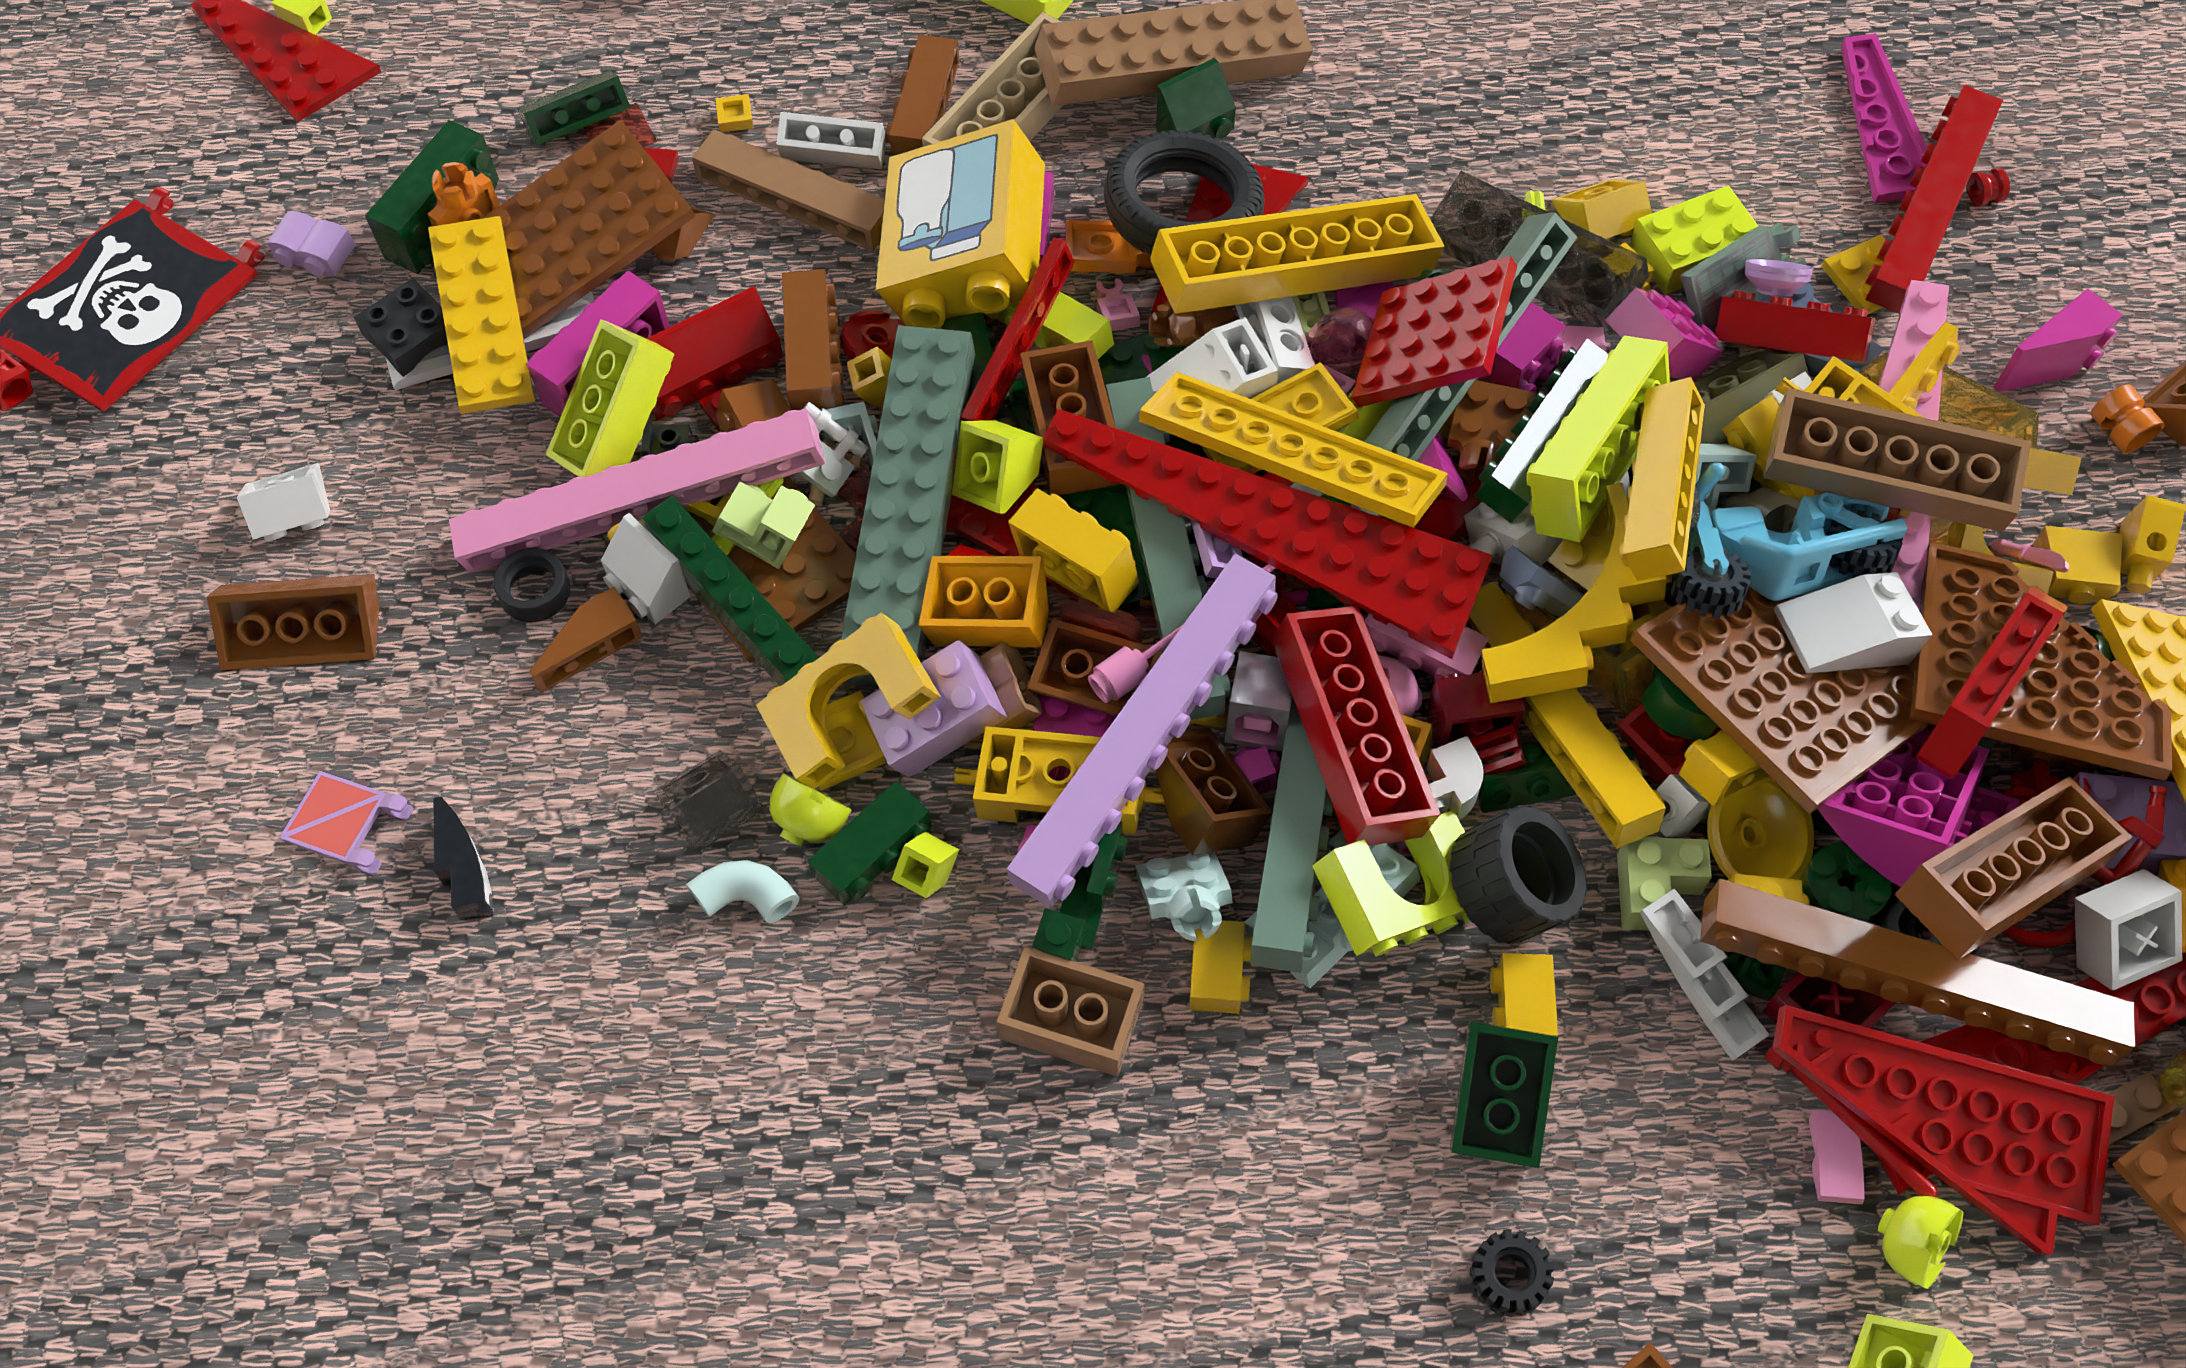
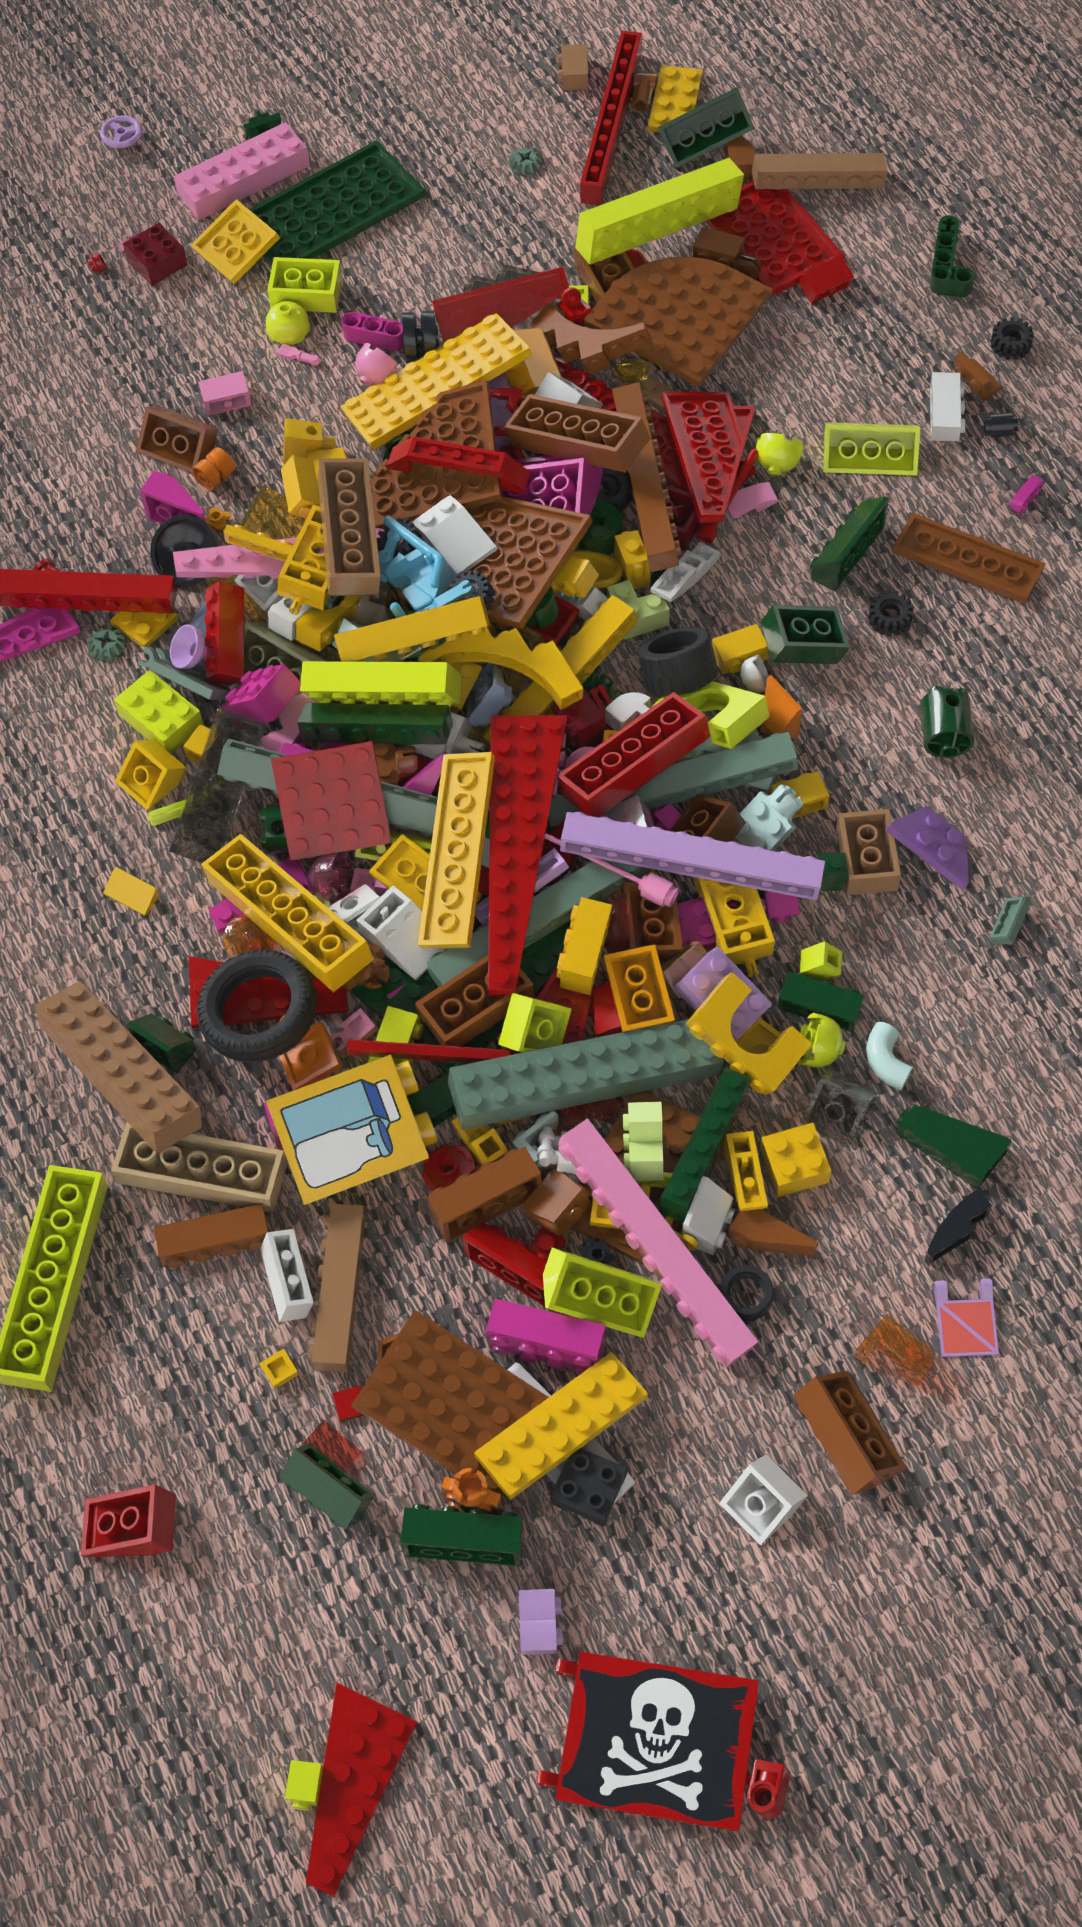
camera: 110 degrees left, 0 degrees up
(352, 721) = (900, 1348): none -> clear orange piece
(571, 913) = (954, 1144): none -> dark green slope
(662, 708) = (795, 1159): none -> yellow brick
(674, 634) = (744, 1170): none -> yellow slope
(863, 1168) = (1010, 920): none -> sand green plate
(1041, 1115) = (935, 843): none -> medium lavender wing
(1227, 1234) = (946, 722): none -> dark green cylinder
(1374, 992) = (783, 710): none -> orange slope
(1431, 150) = (131, 891): none -> yellow slope
(1463, 997) = (754, 674): none -> white hair
(1678, 1267) = (849, 543): none -> dark green slope
(1855, 233) = (111, 649): none -> sand green gear
(1987, 334) = (176, 535): none -> black dish
(2031, 394) = (220, 522): none -> light orange plate

